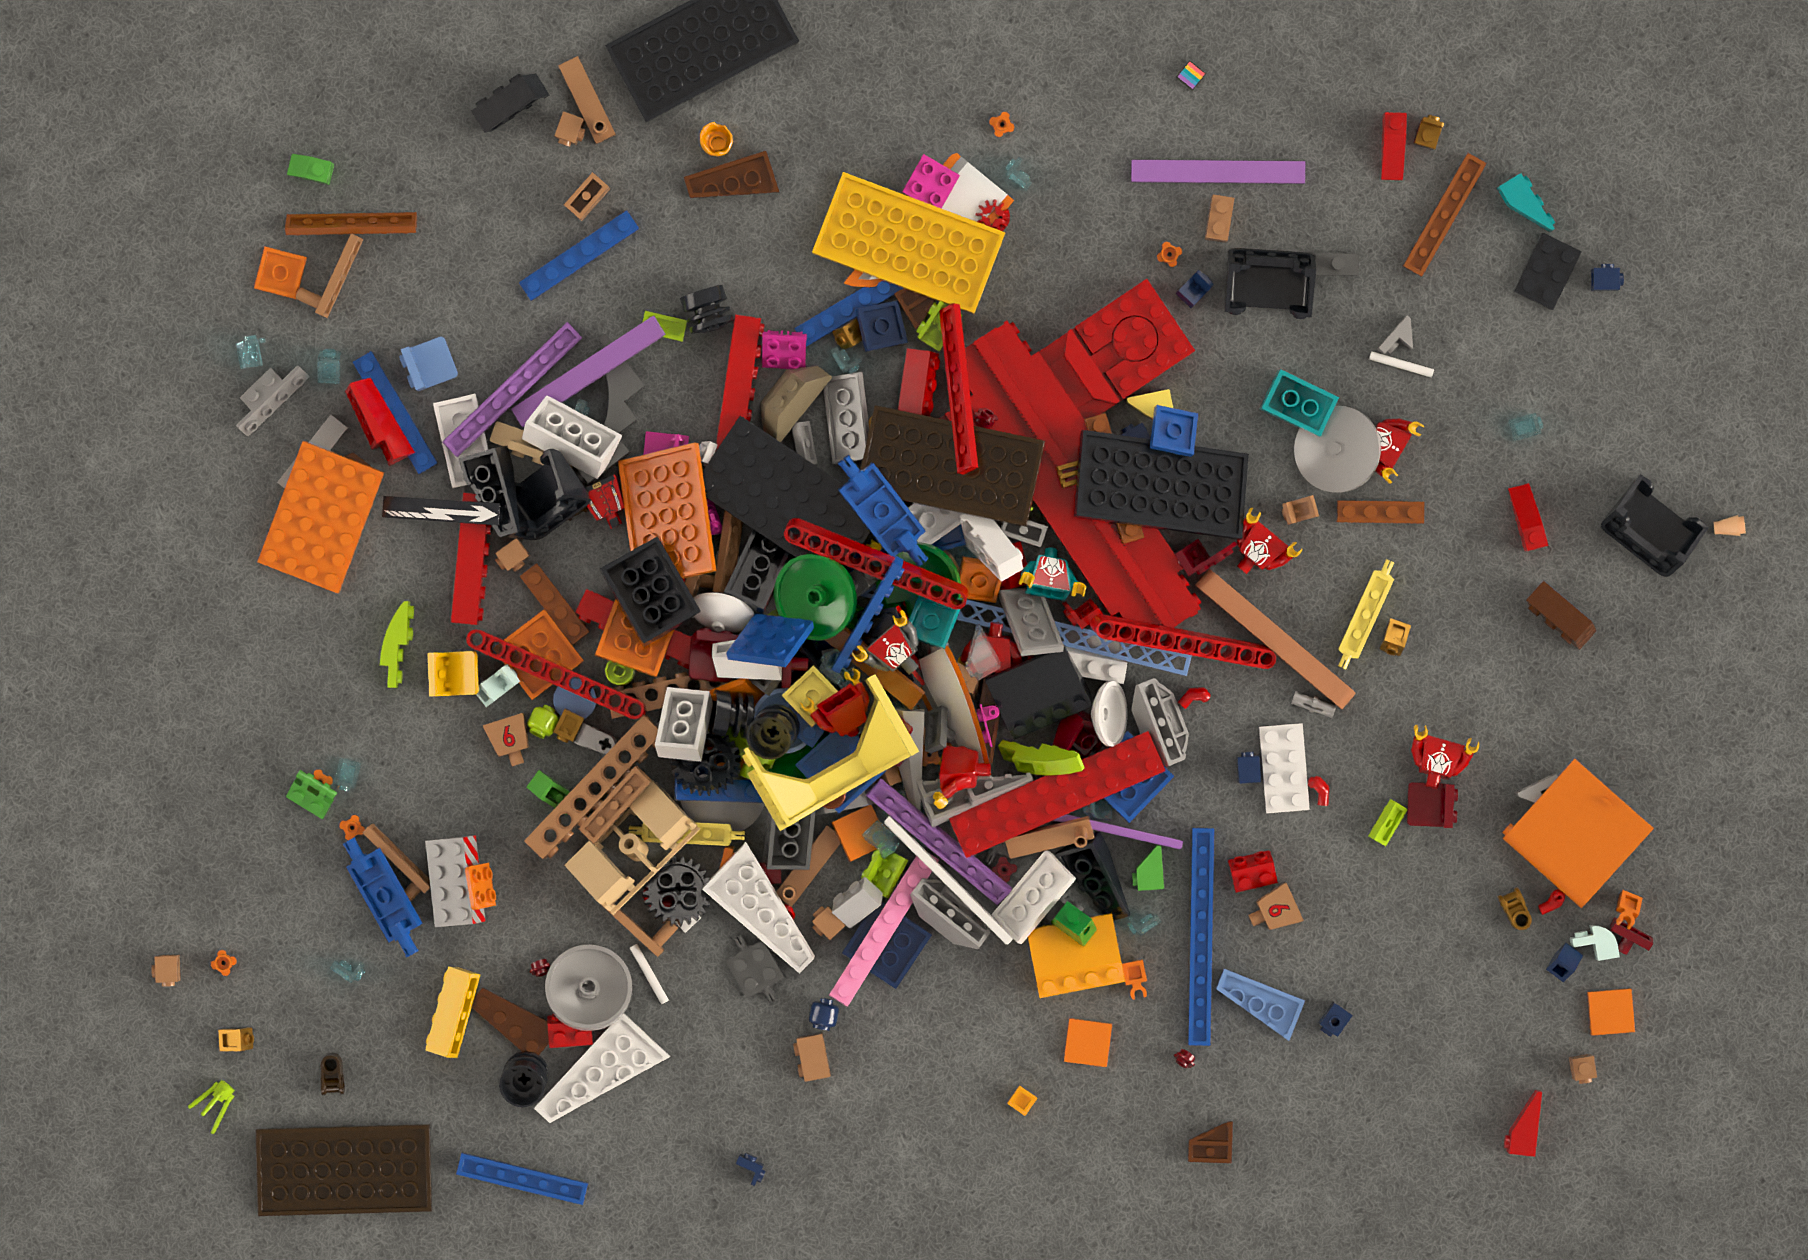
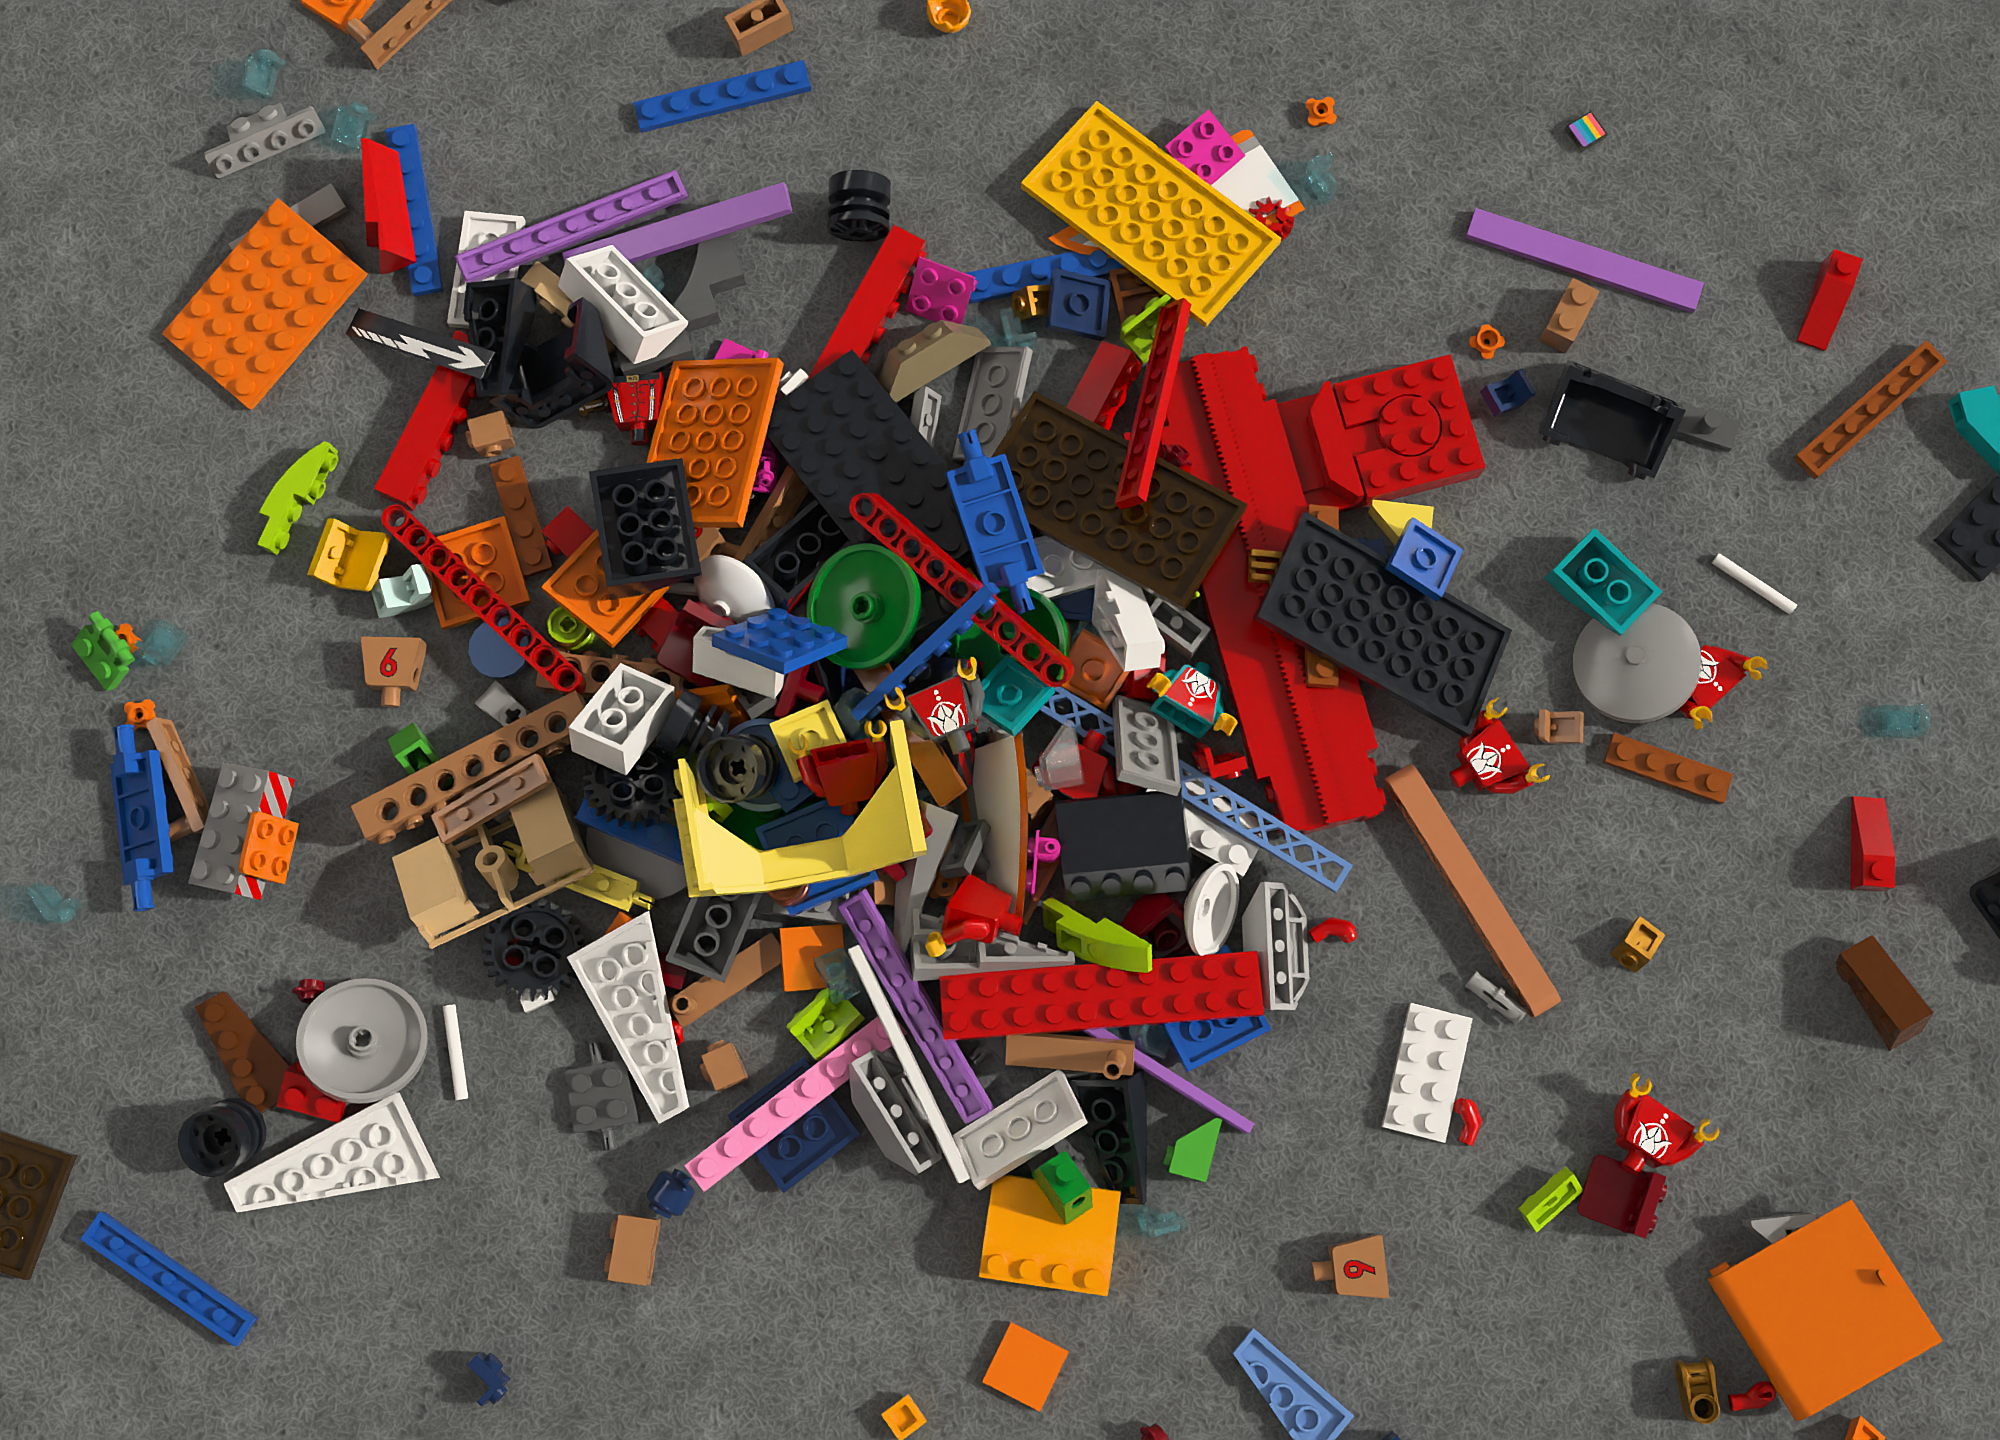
camera: 20 degrees right, 10 degrees down
(428, 363) = (477, 162): medium blue bracket -> none
(452, 1012) = (166, 1010): yellow brick -> none
(542, 721) = (444, 661): lime head -> none
(568, 726) = (475, 677): pearl gold bracket -> none
(652, 943) = (474, 1011): medium nougat piece -> none
(672, 327) = (804, 220): lime plate -> none
(739, 177) = (959, 66): reddish brown wing -> none
(857, 902) = (772, 1050): light grey brick -> none
(1010, 868) = (1001, 1078): dark red plate -> none
(1135, 974) = (1123, 1292): orange plate -> none
(1174, 637) = (1357, 854): red beam -> none
(1196, 558) = (1396, 741): dark red bracket -> none
(1201, 936) = (1234, 1272): blue plate -> none
(1248, 768) = (1378, 1054): dark blue brick -> none
(1252, 871) = (1338, 1202): red bracket -> none
(1366, 614) = (1606, 898): light yellow plate -> none
(1402, 332) = (1768, 543): light grey slope -> none
(1429, 132) = (1880, 299): pearl gold bracket -> none

